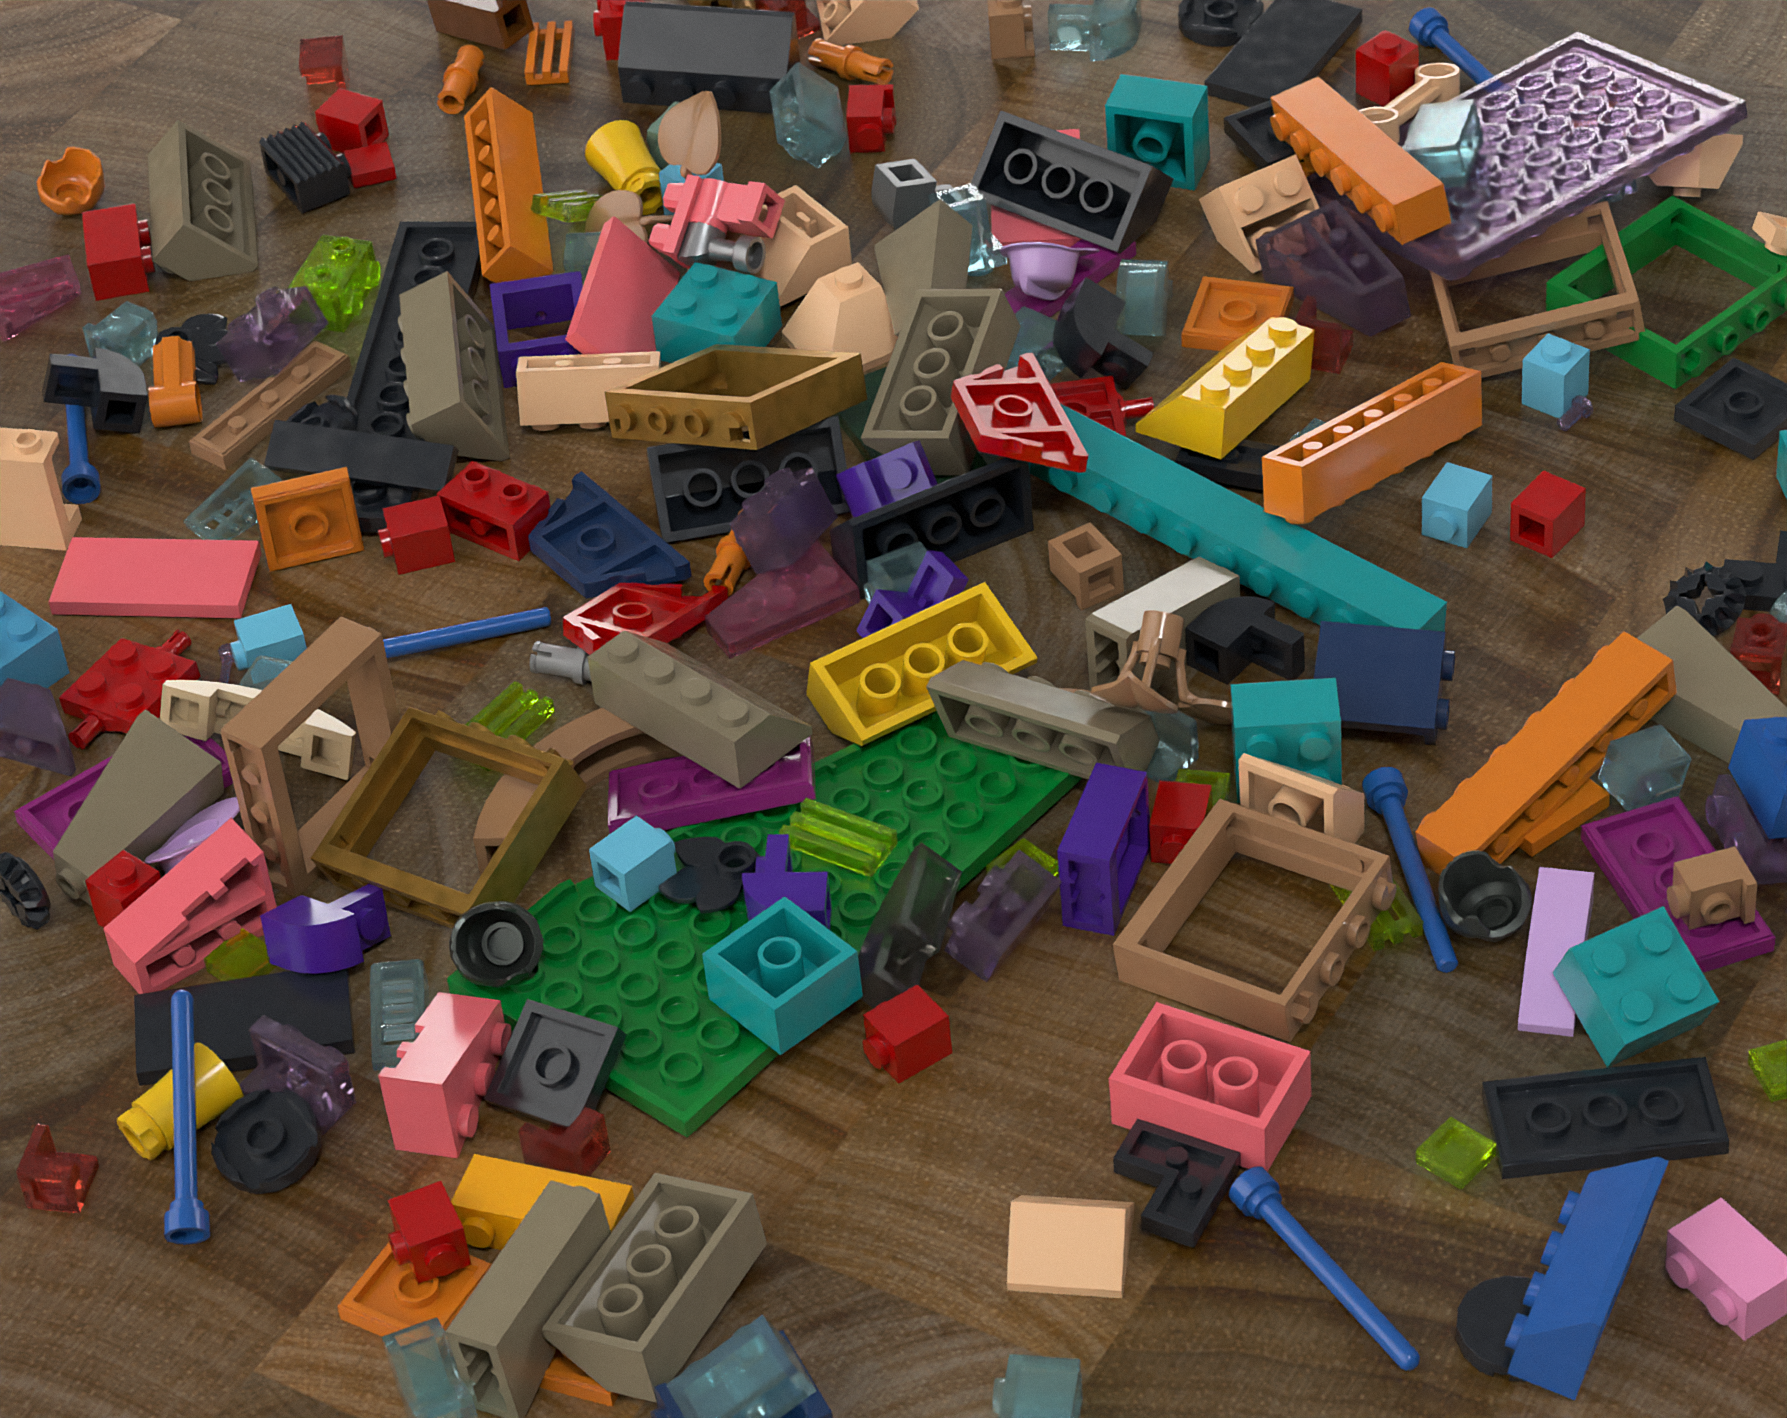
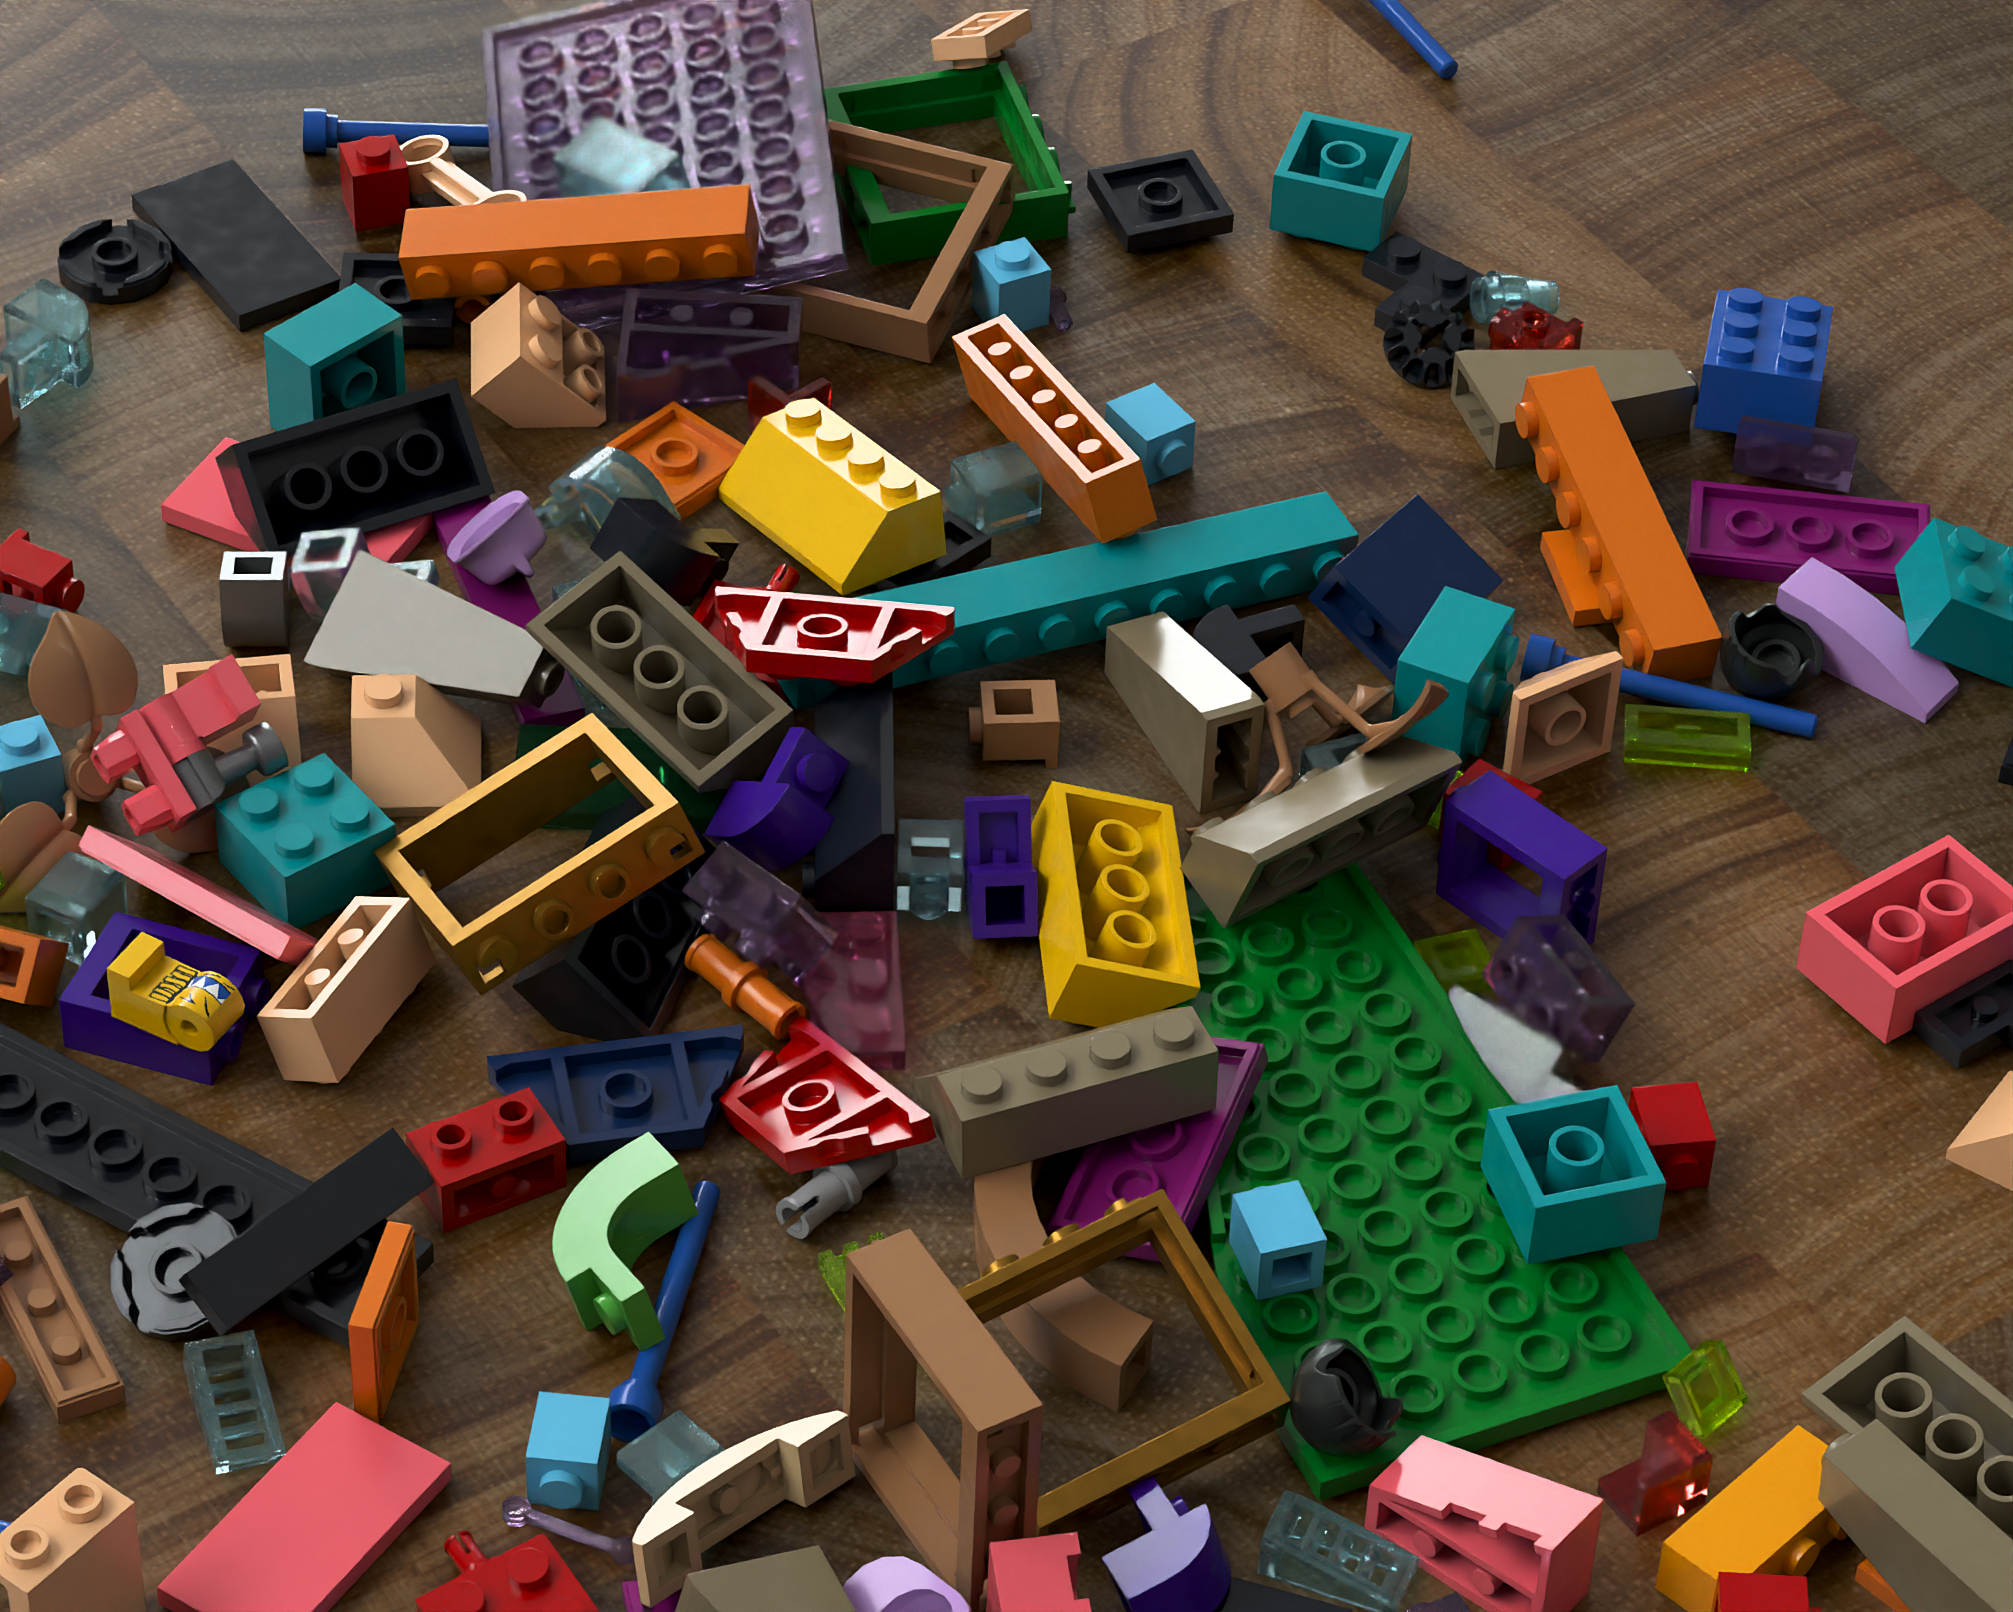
camera: 70 degrees left, 0 degrees up
(416, 535) = (470, 1244): red brick -> none
(452, 370) = (209, 1086): dark tan slope -> none
(454, 581) = (608, 1225): none -> bright green arch
(502, 311) = (170, 996): none -> yellow leg
(554, 1065) = (1553, 1420): black plate -> none
(663, 1138) = (1705, 1388): none -> clear neon green tile
(710, 873) = (1335, 1182): black plate -> none
(776, 879) = (1428, 1146): dark purple brick -> none
(842, 831) = (1331, 1061): clear neon green tile -> none
(1278, 842) = (1757, 760): medium nougat window -> none
(1547, 514) = (1216, 383): red brick -> none
(1644, 768) = (1670, 470): clear light blue brick -> none
(1712, 889) = (1873, 500): medium nougat brick -> none

